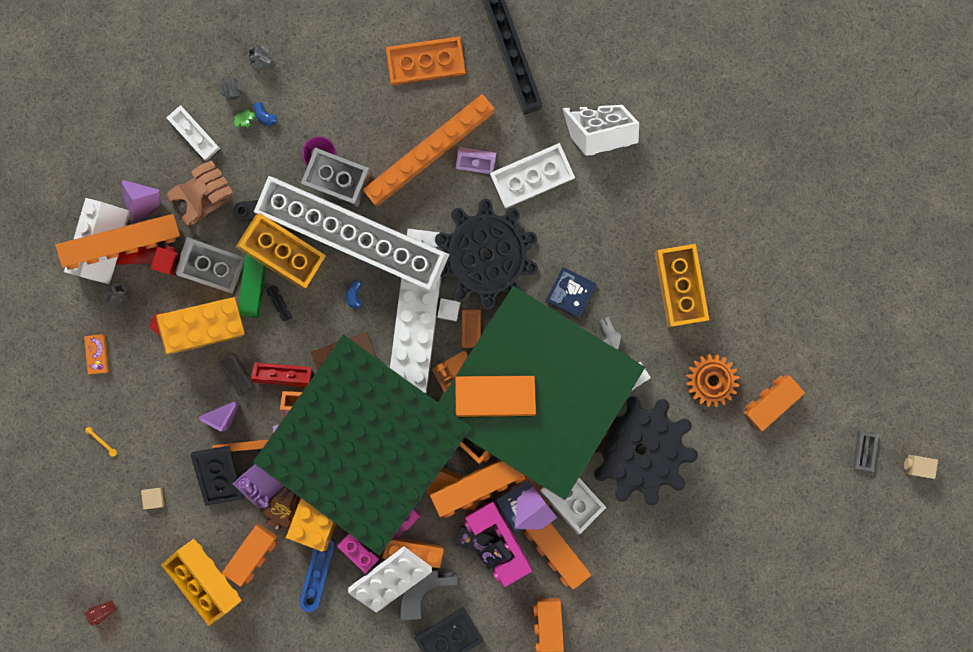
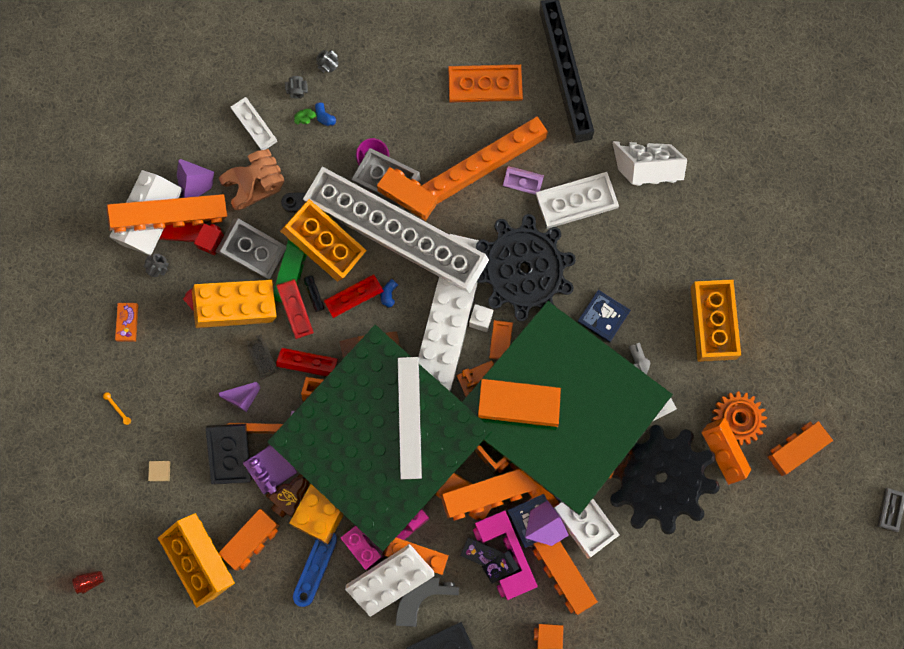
camera: 10 degrees right, 10 degrees down
(262, 322) = (295, 308): none -> red tile
(319, 302) = (353, 296): none -> red plate
(359, 193) = (407, 193): none -> orange brick
(389, 425) = (409, 418): none -> white tile
(702, 415) = (726, 451): none -> orange brick

